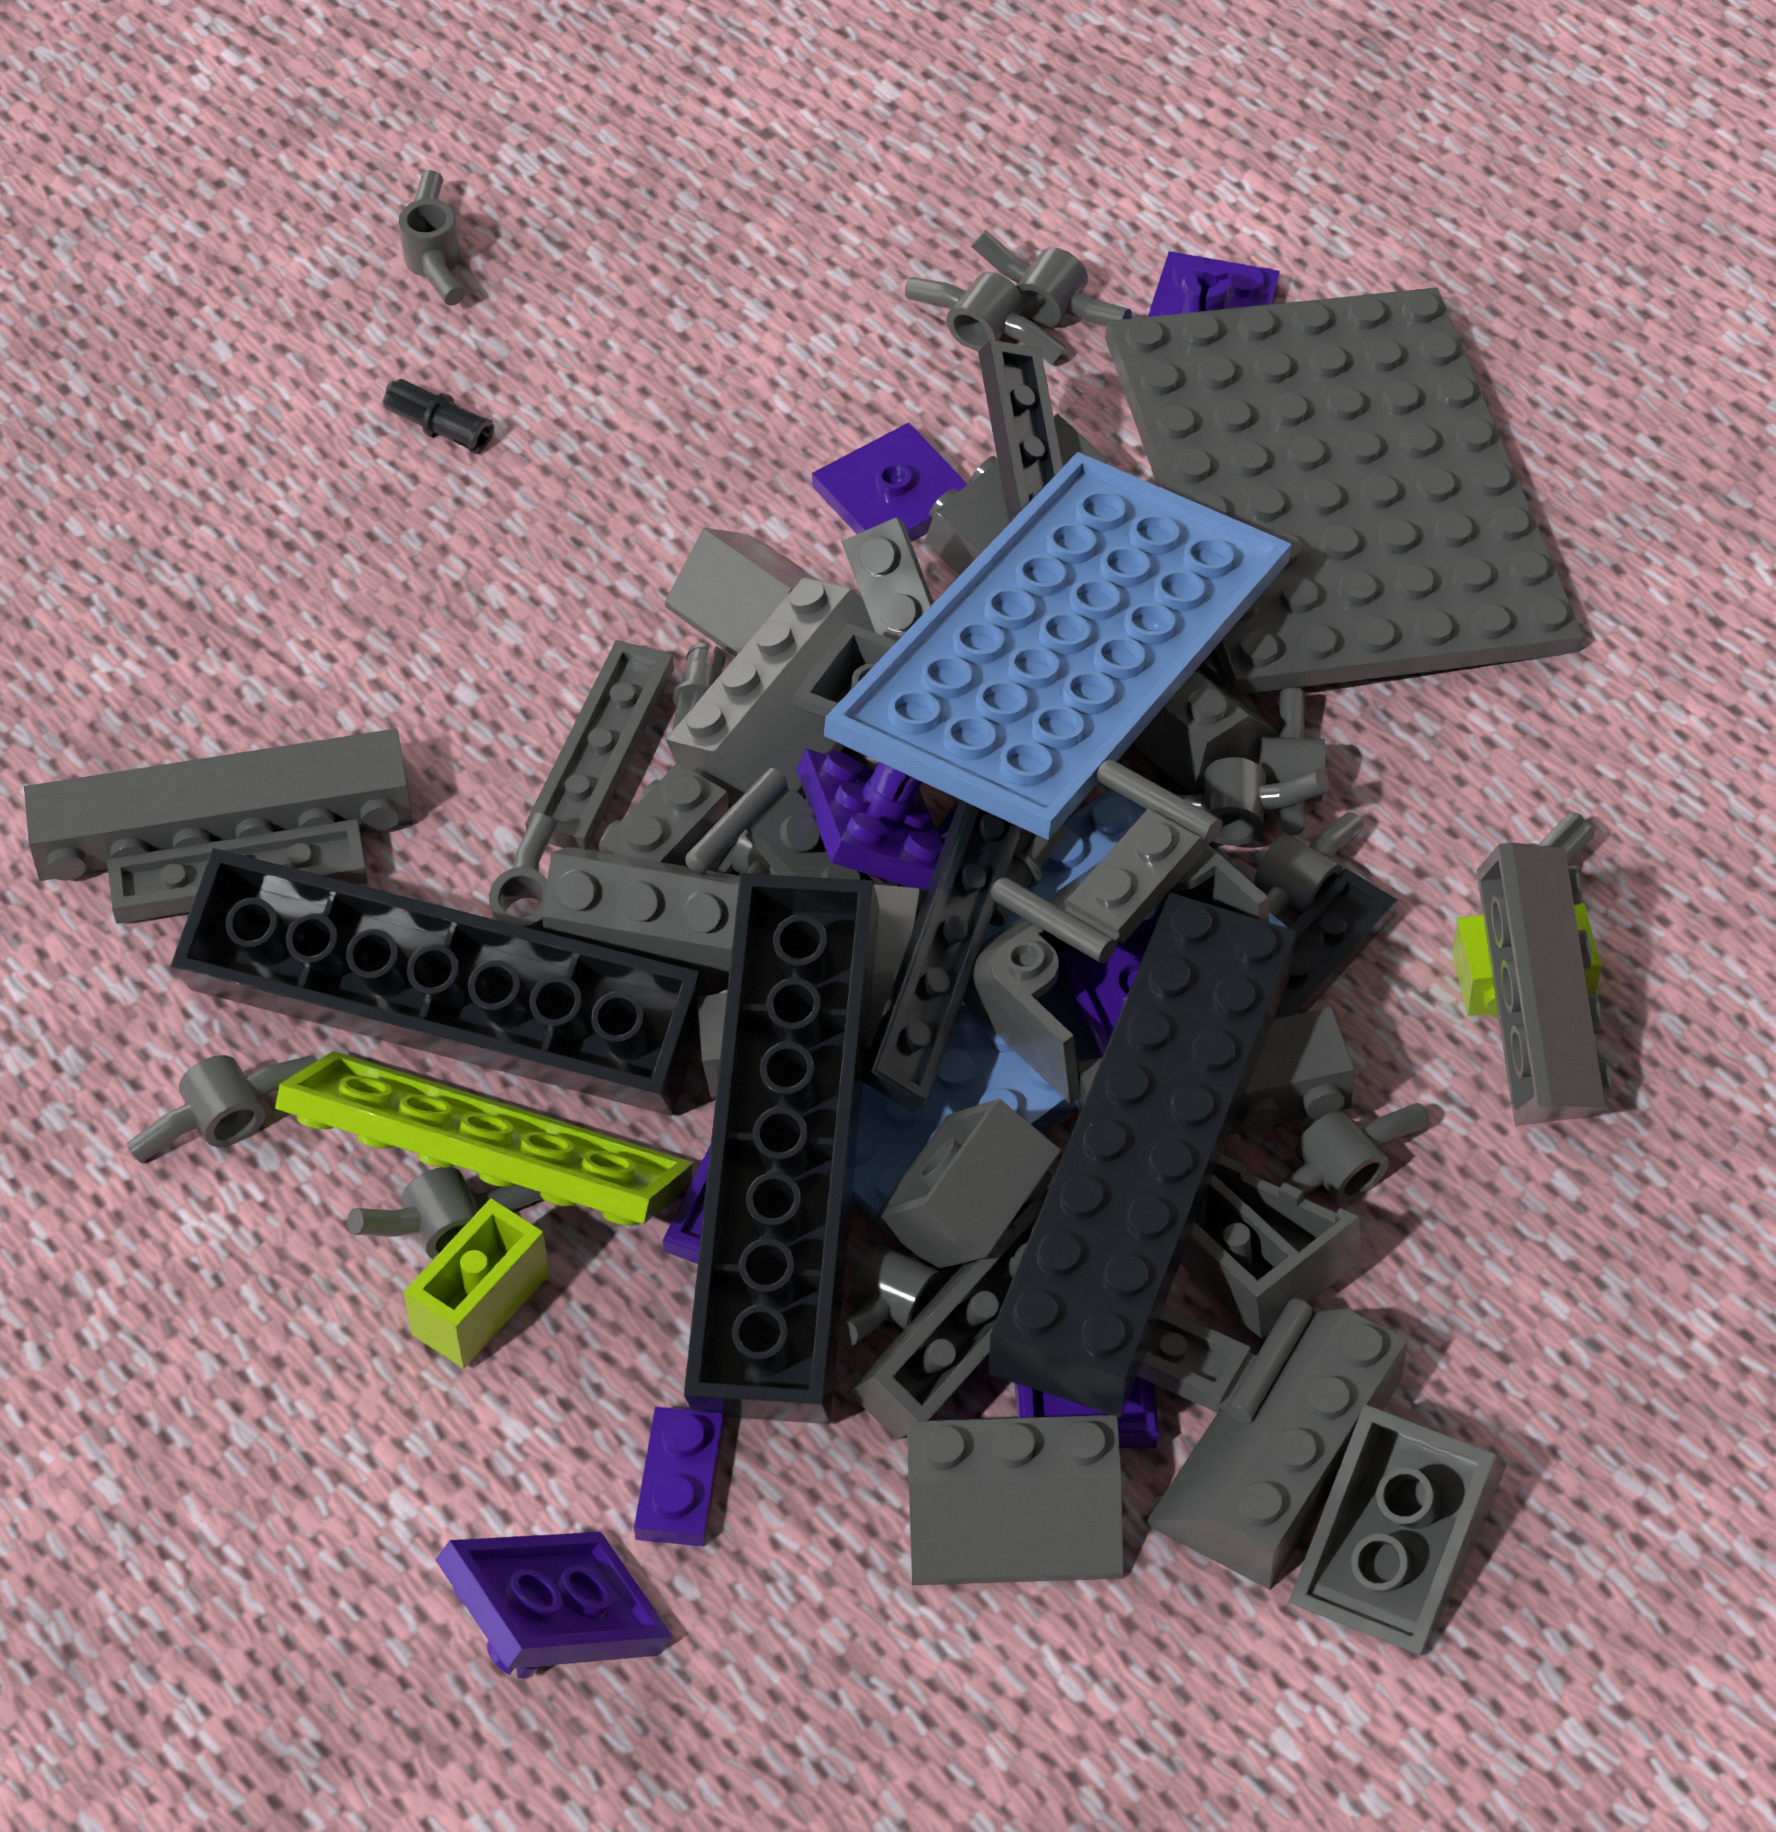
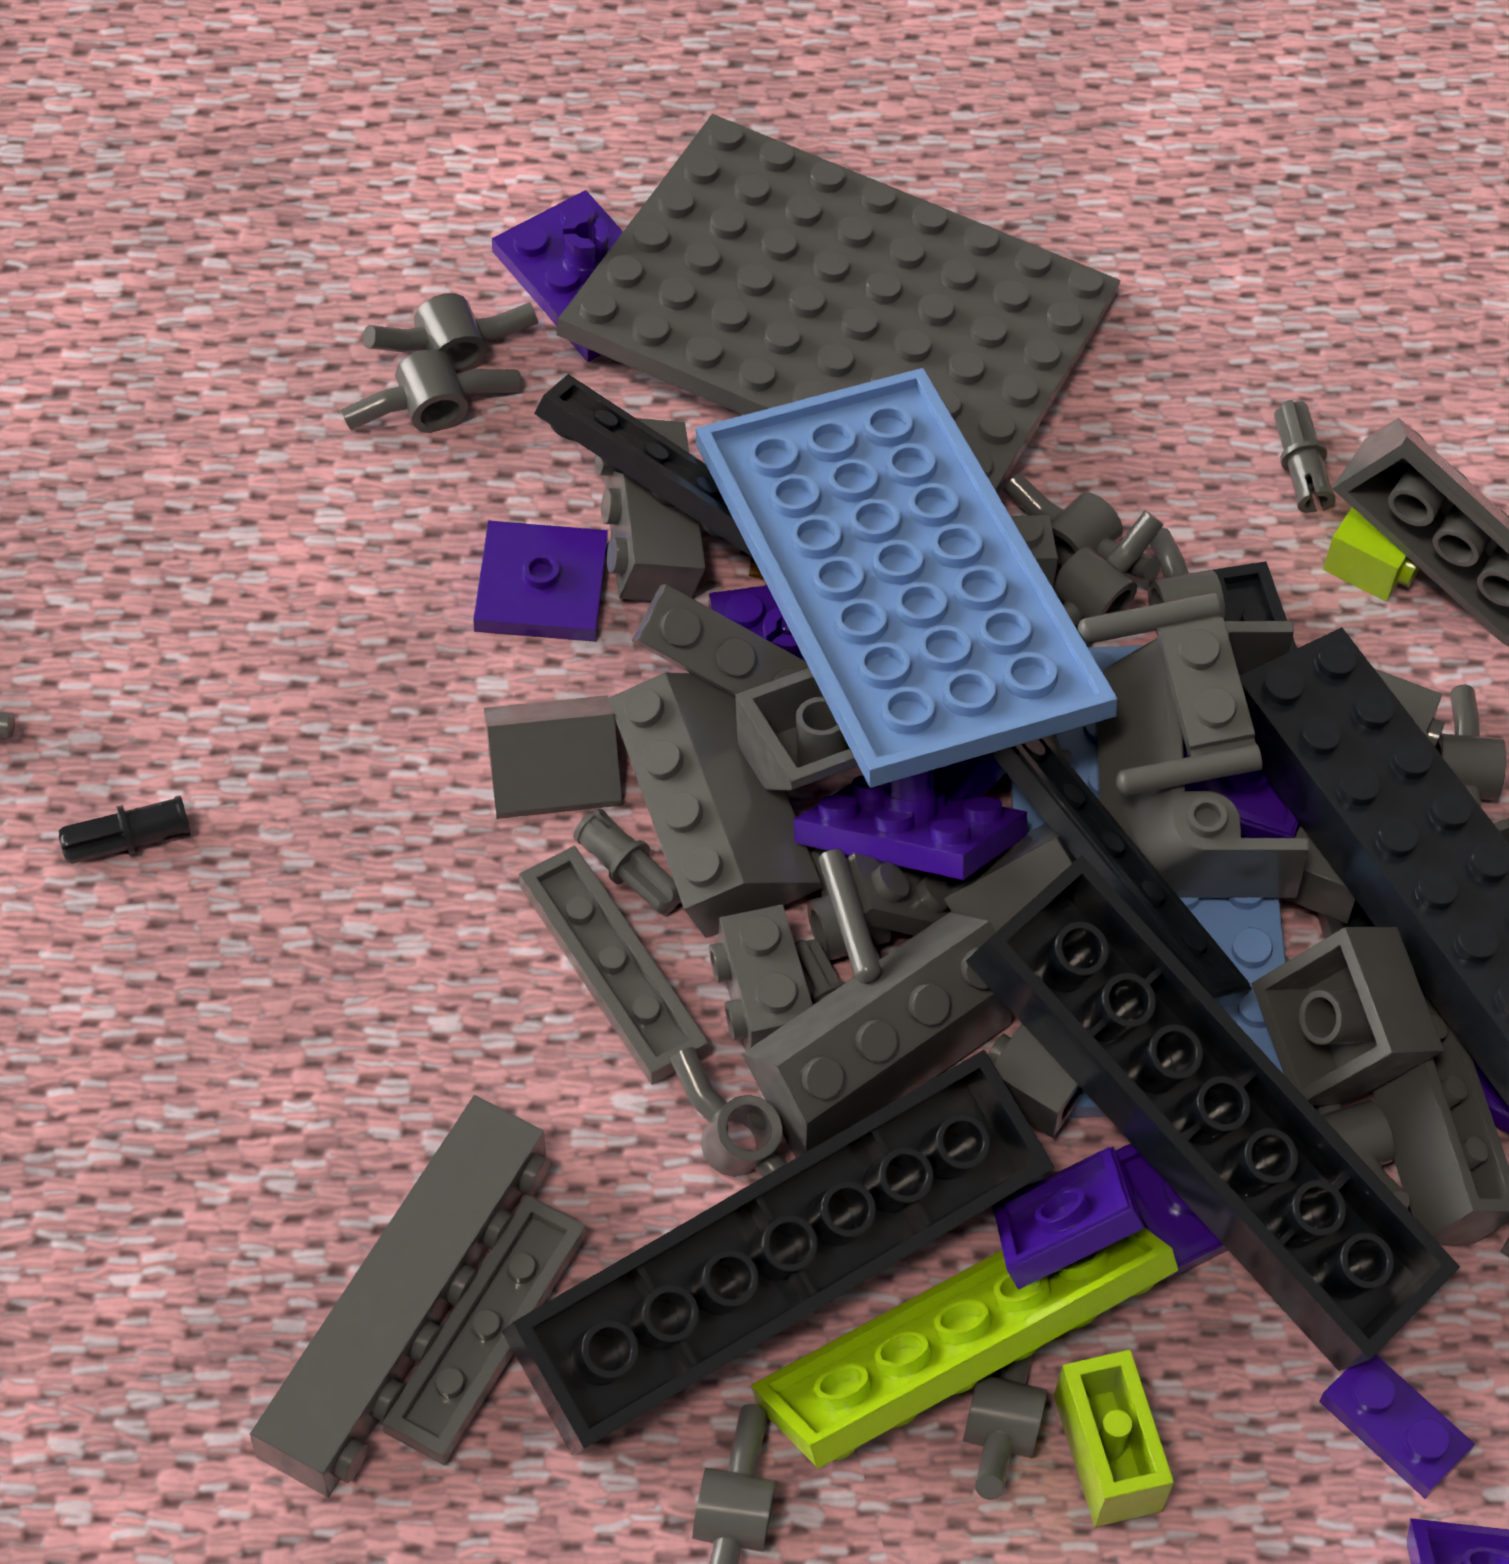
camera: 55 degrees left, 5 degrees up
(625, 1130) = (1066, 1217): none -> dark purple plate

